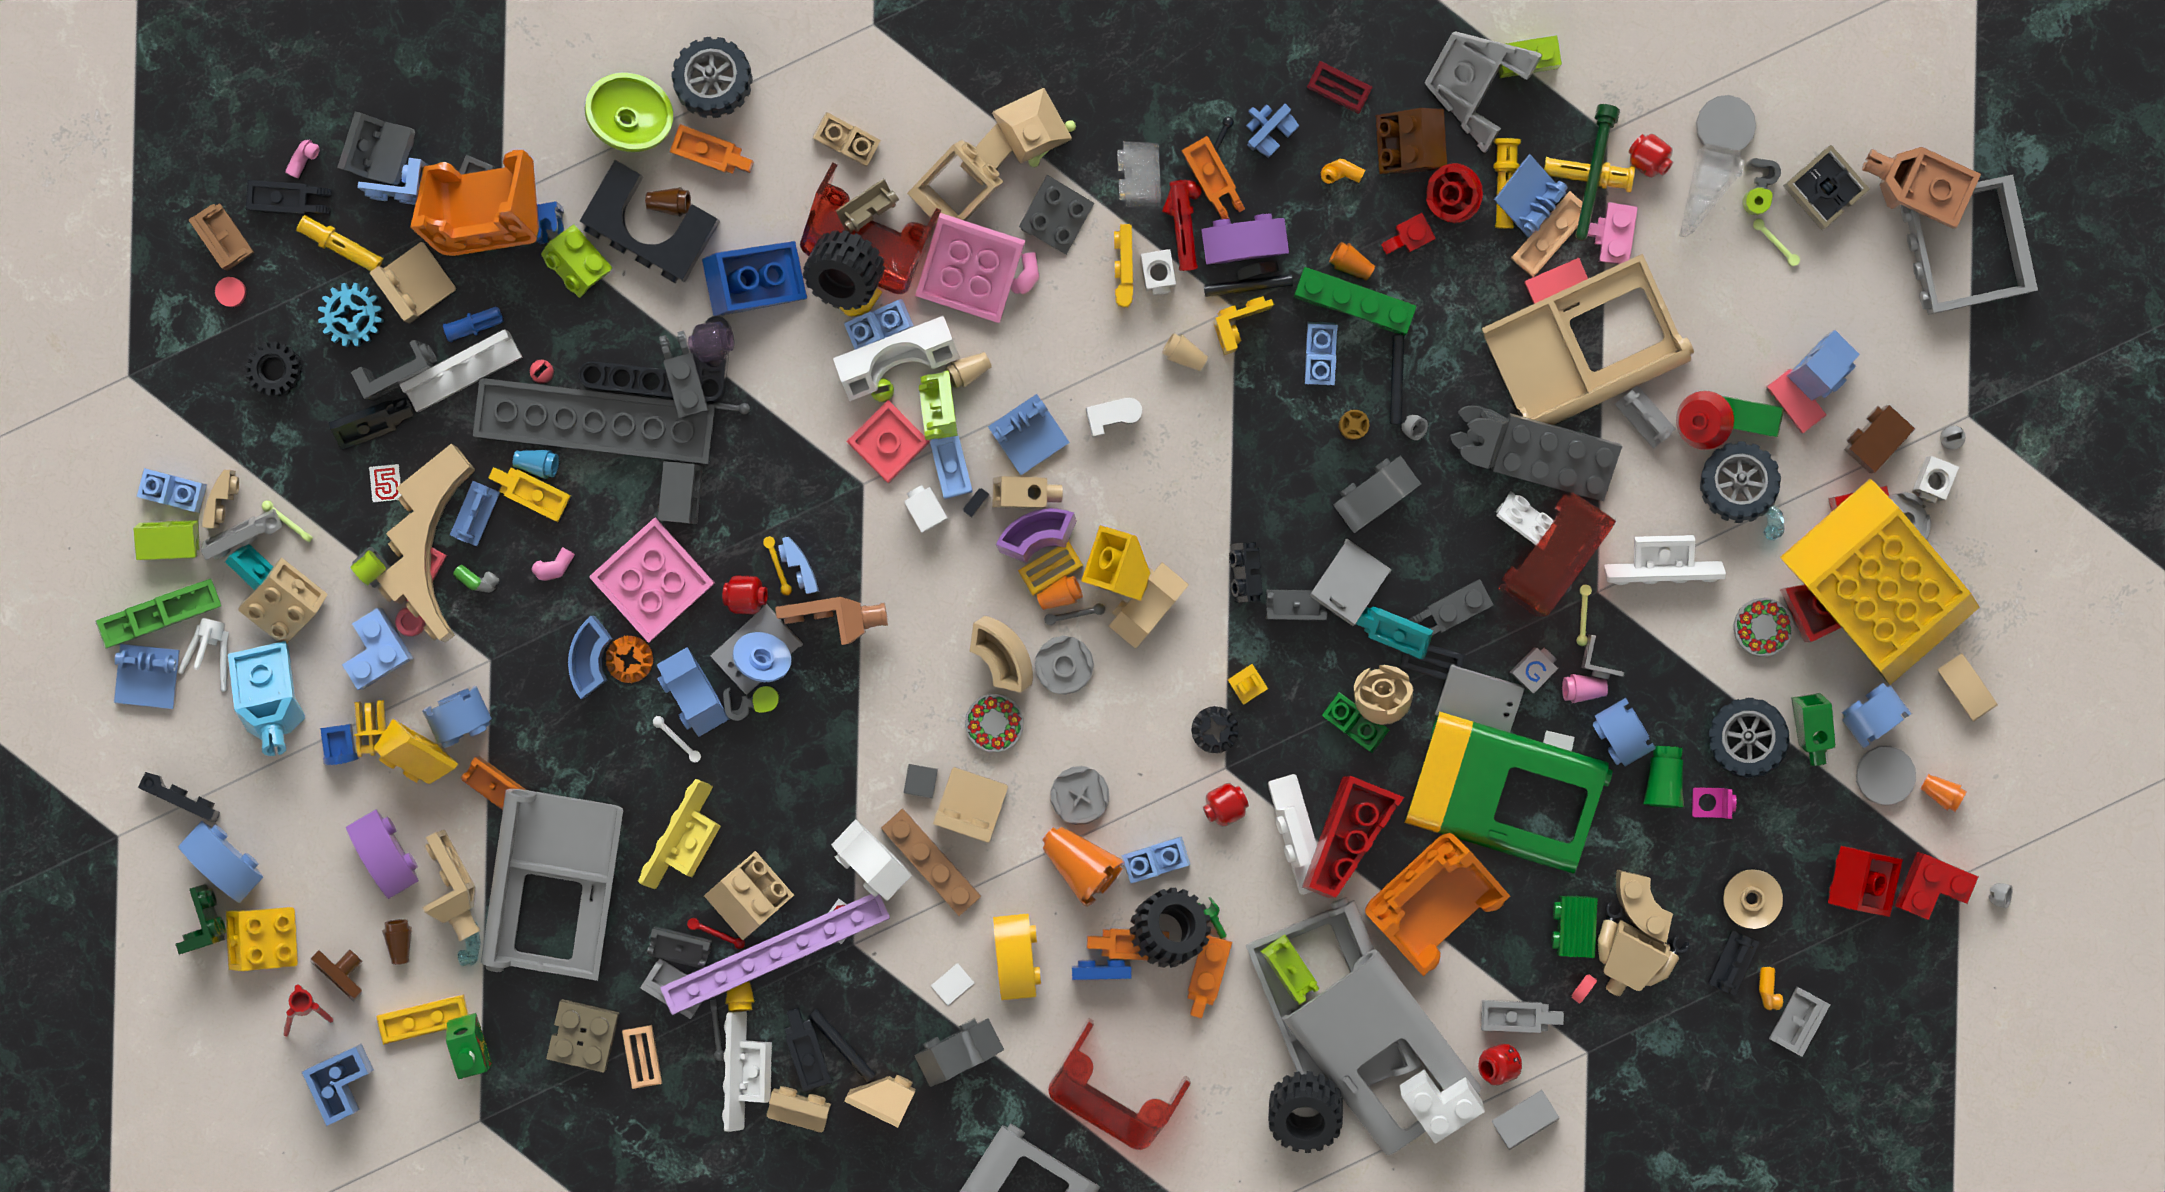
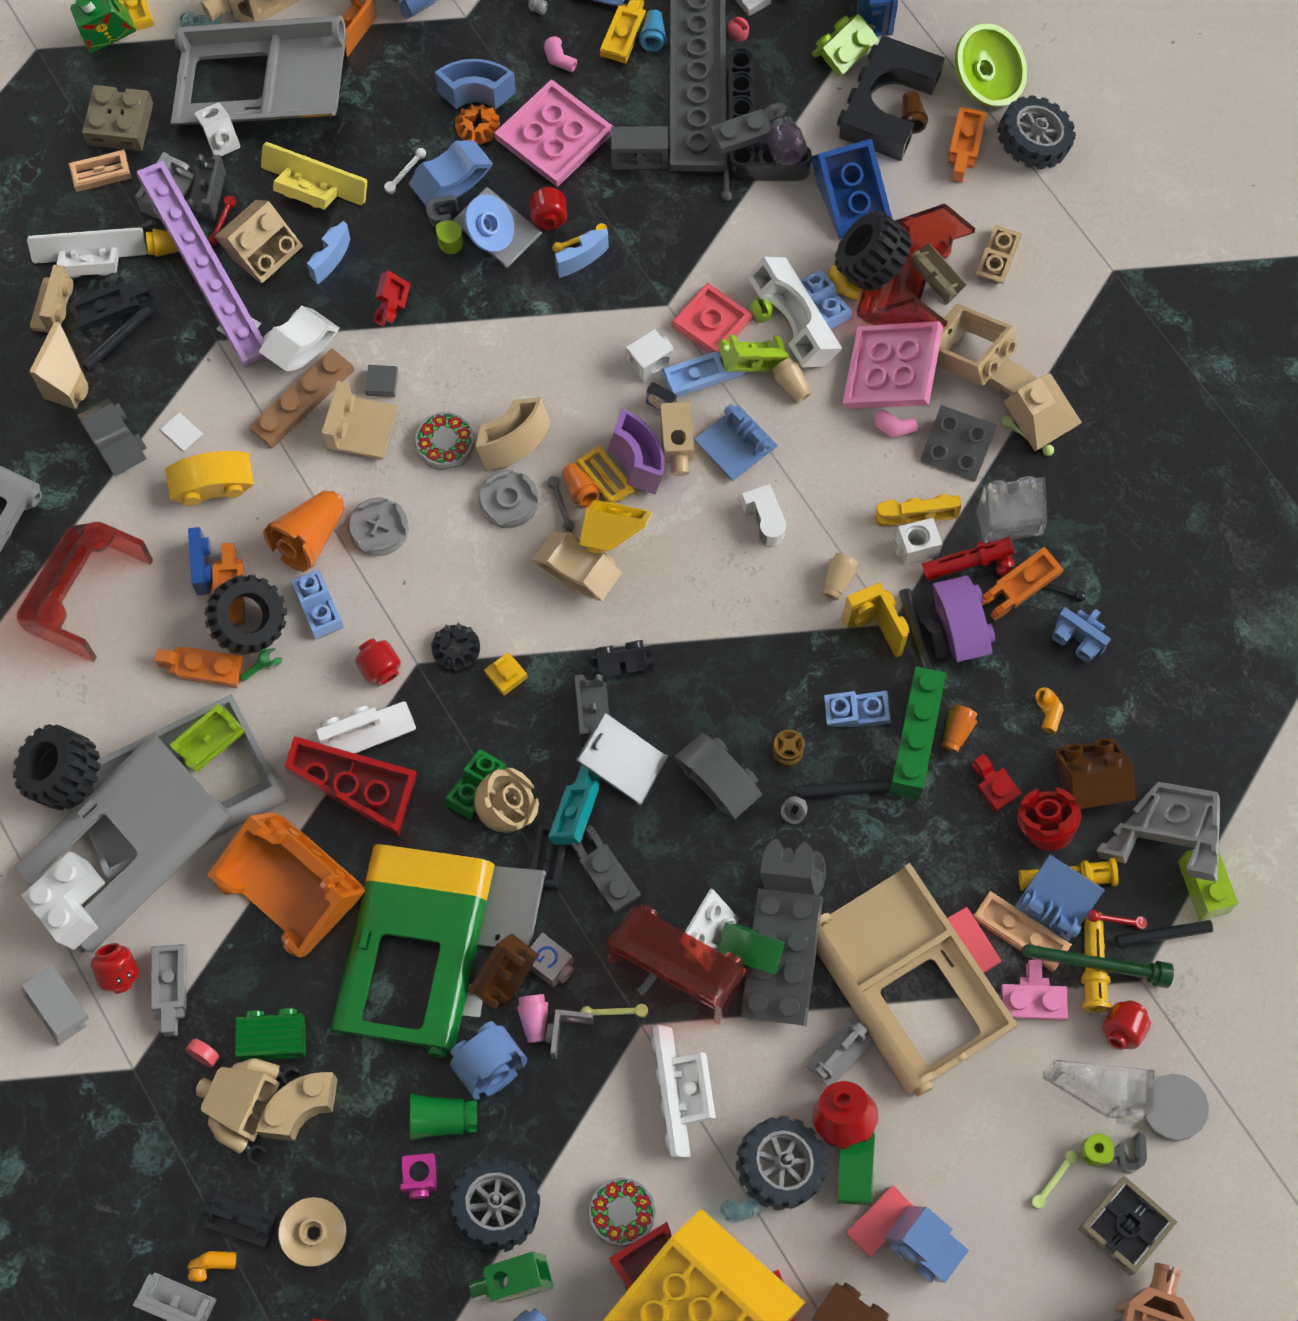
camera: 80 degrees right, 20 degrees down
(617, 930) = (218, 129): none -> white bracket
(762, 817) = (335, 245): none -> light blue slope
(827, 763) = (392, 294): none -> red plate
(851, 615) = (534, 290): nougat plate -> none
(1333, 97) = (1129, 722): dark red tile -> none
(1544, 711) = (503, 971): none -> reddish brown hinge
(1552, 484) = (753, 948): none -> green slope
(1555, 125) = (1139, 923): none -> red hinge
(1568, 104) = (1164, 933): none -> black bar

